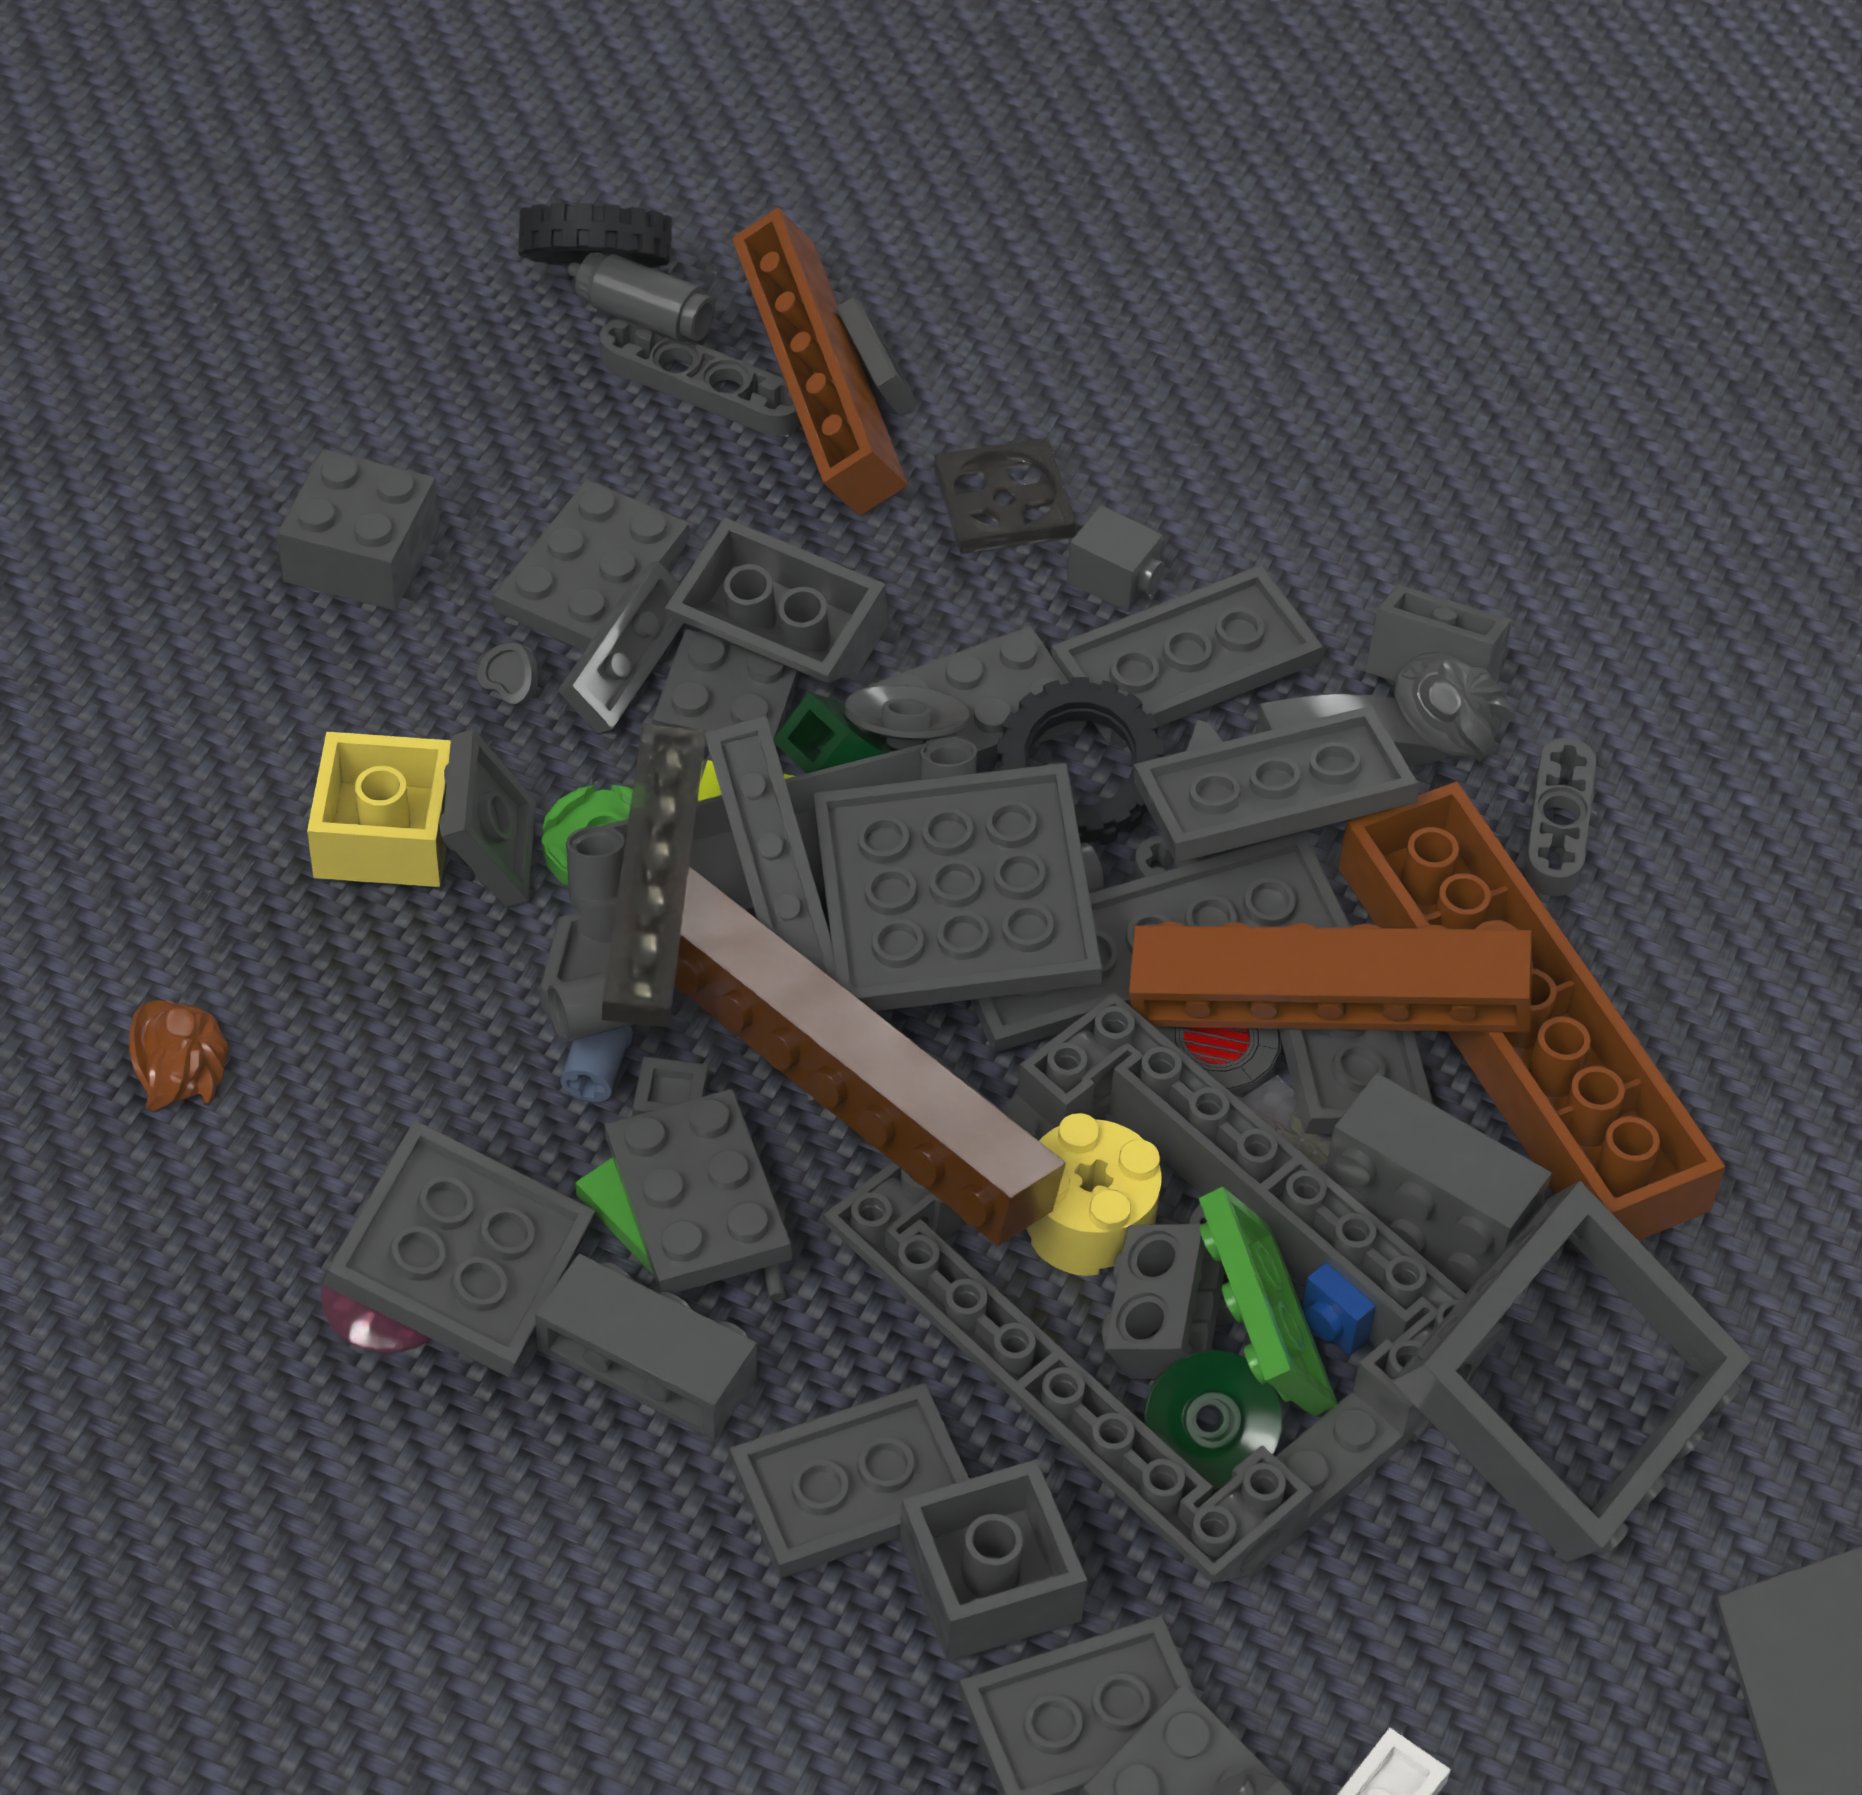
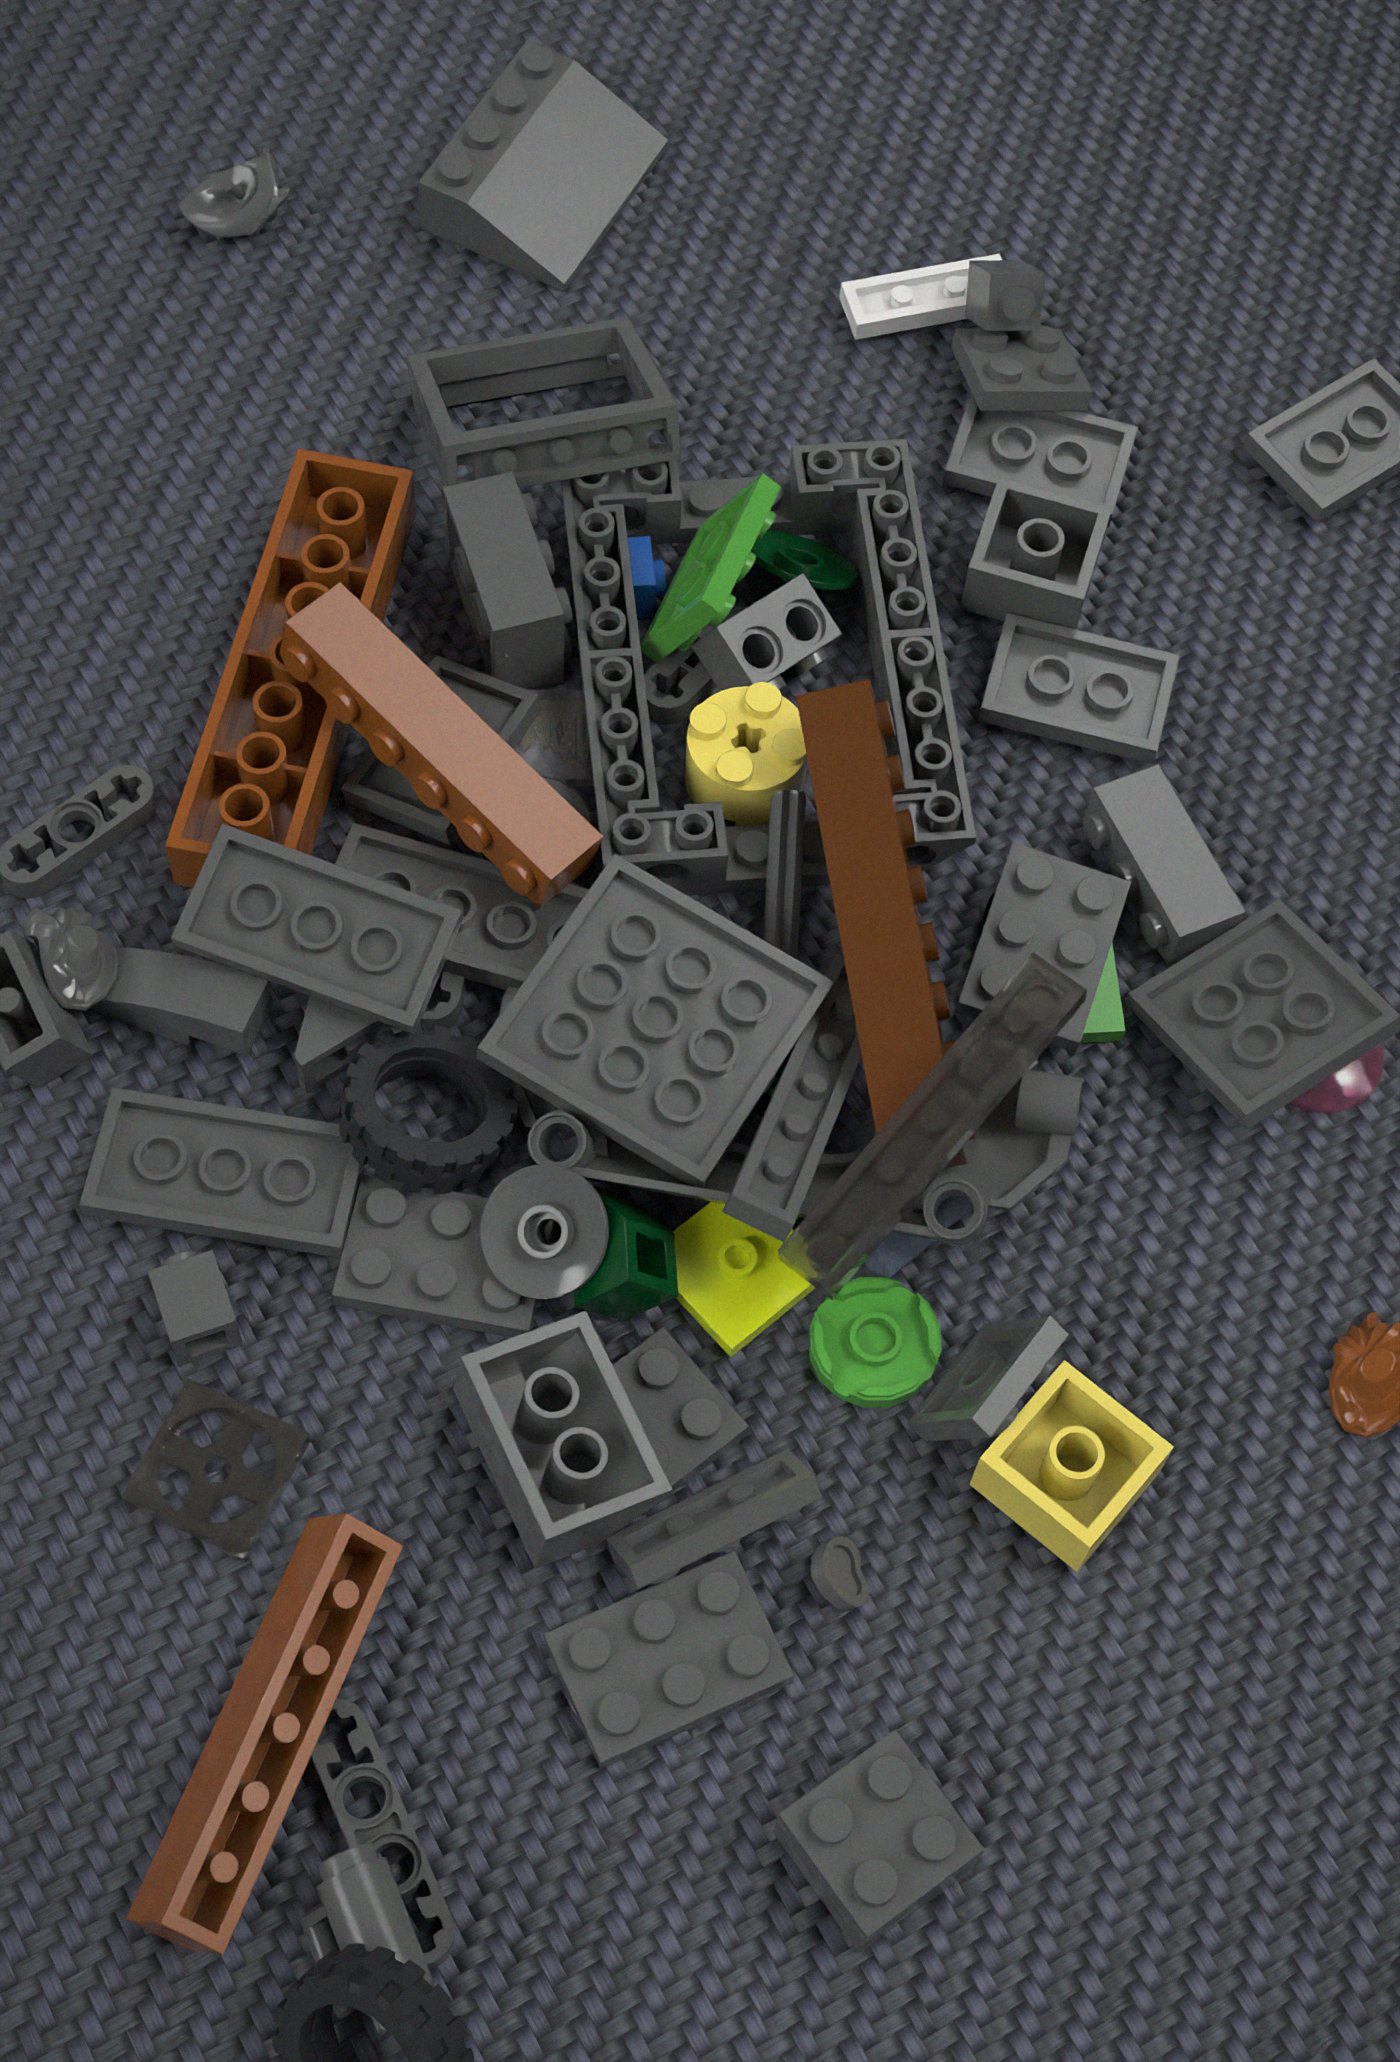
camera: 145 degrees left, 10 degrees up
(877, 356) = (195, 1712): dark grey tile -> none

